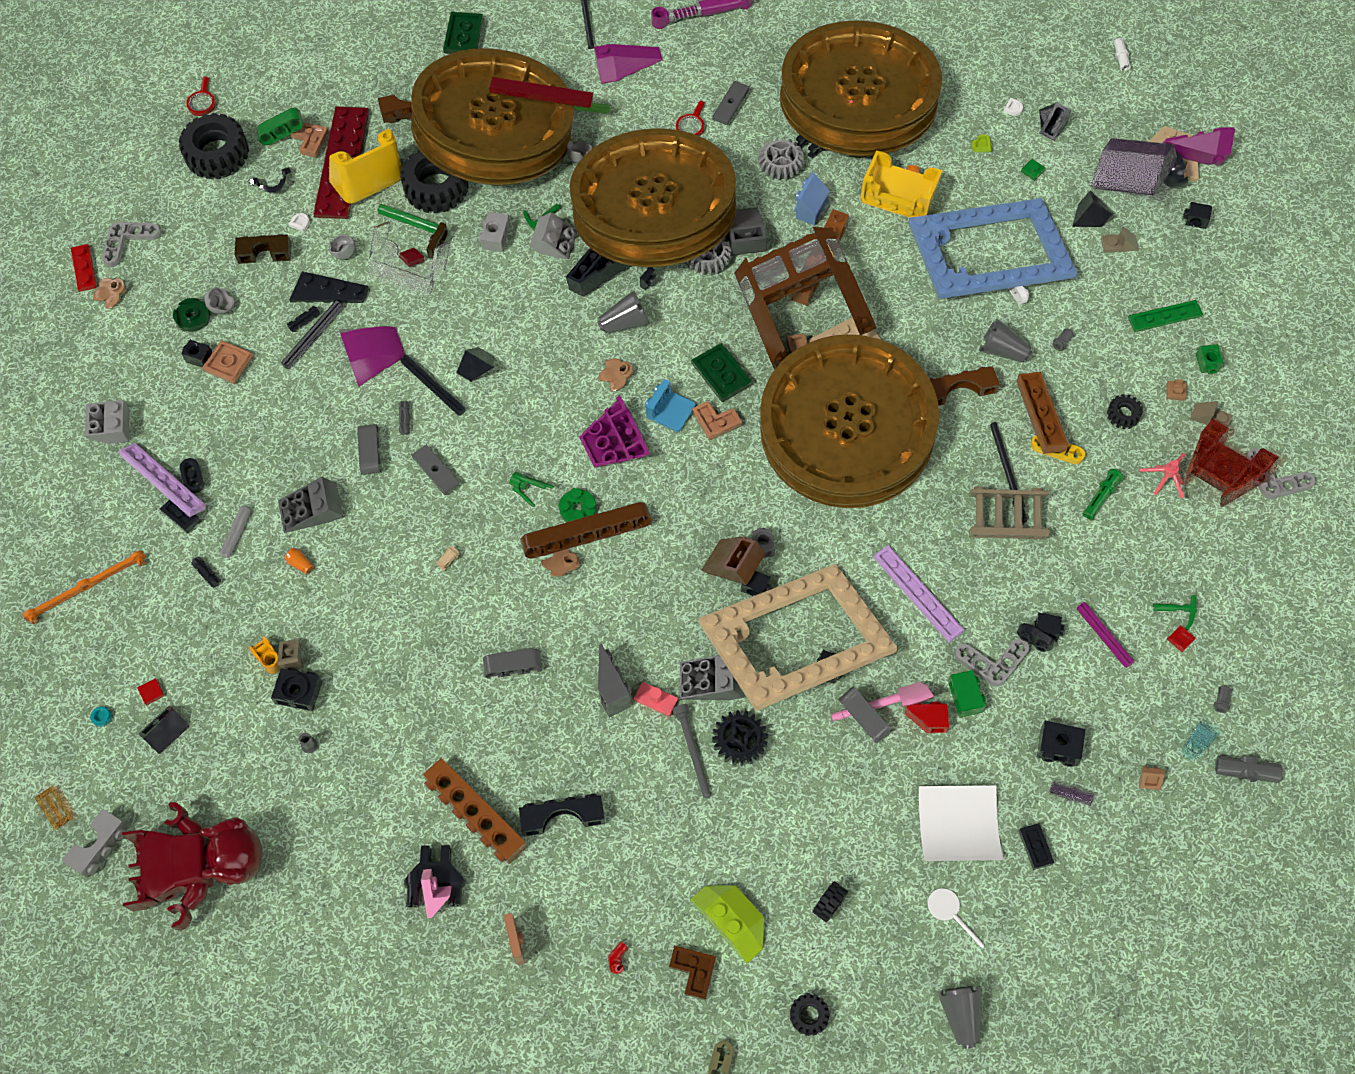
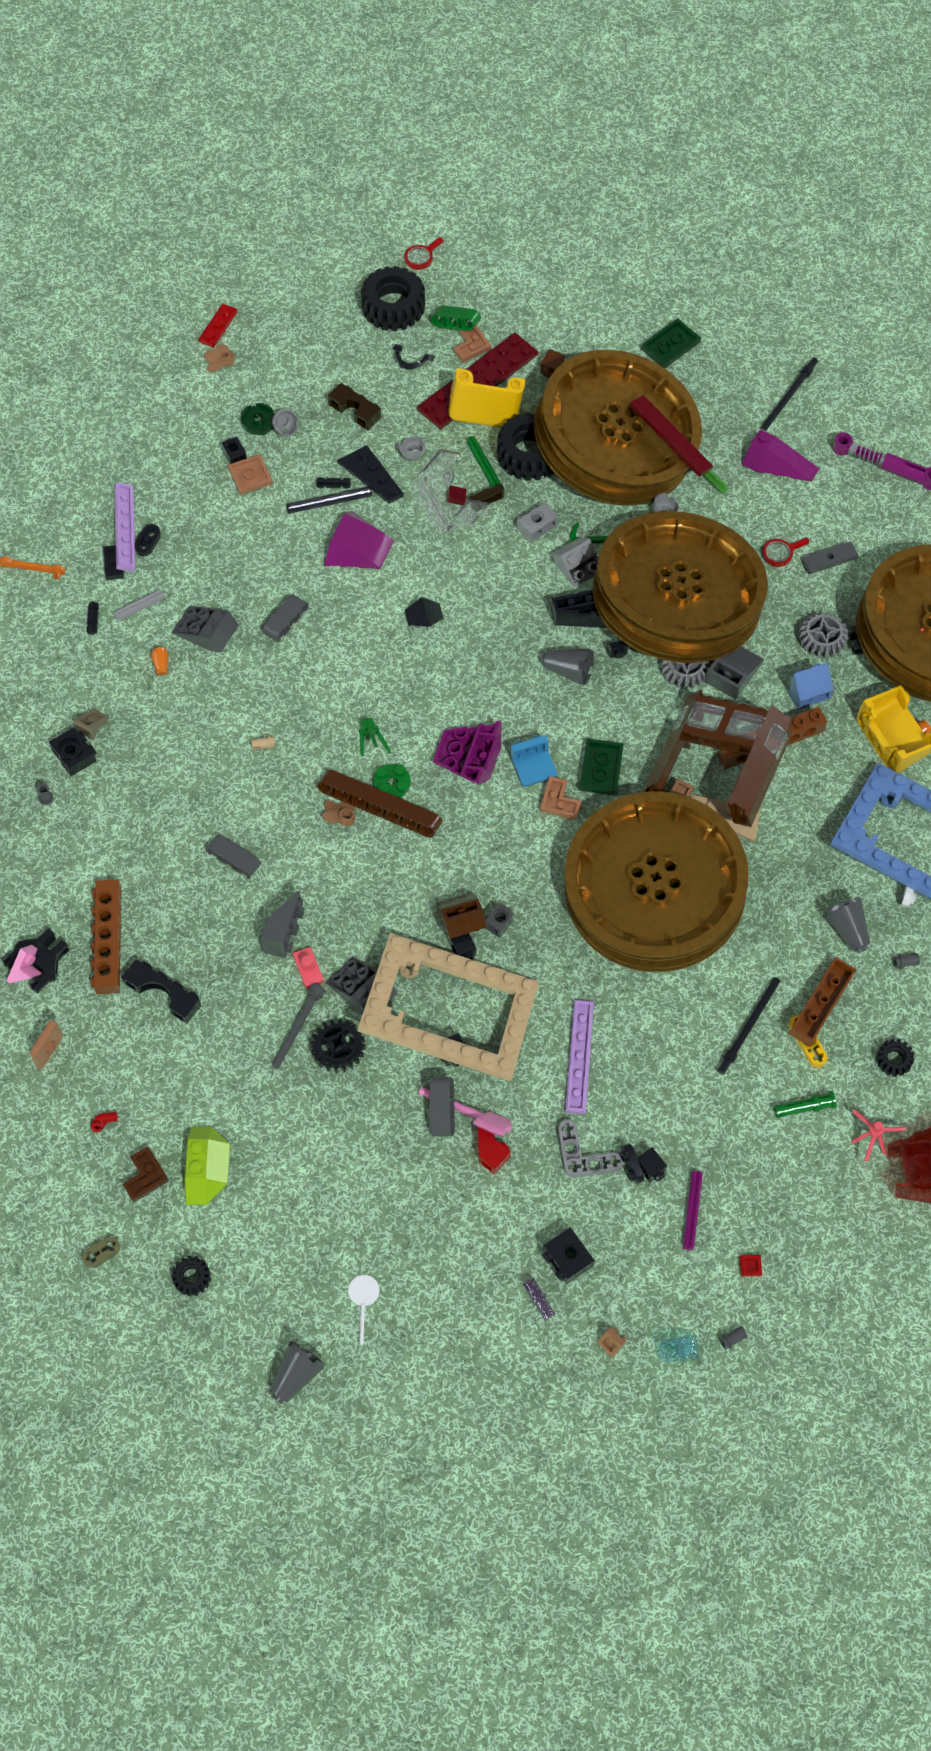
camera: 40 degrees right, 0 degrees up
(107, 422) = (127, 455): light grey slope -> none
(125, 233) = (268, 320): light grey beam -> none
(265, 653) = (75, 708): light orange piece -> none
(300, 222) = (402, 405): white tile -> none
(404, 418) = (333, 614): dark grey axle -> none
(428, 463) = (317, 662): dark grey tile -> none
(433, 385) = (377, 606): black axle -> none
(614, 374) = (518, 704): medium nougat plate -> none
(830, 901) = (281, 1212): black tyre -> none
(959, 823) = (434, 1245): white sticker -> none
(966, 693) = (536, 1158): green brick -> none
(981, 381) = (800, 937): reddish brown arch -> none
(1017, 530) = (706, 1074): dark tan fence -> none
(1036, 846) = (472, 1312): black plate -> none
(1173, 608) = (771, 1239): green piece -> none
(1248, 768) = (695, 1403): dark grey piece -> none

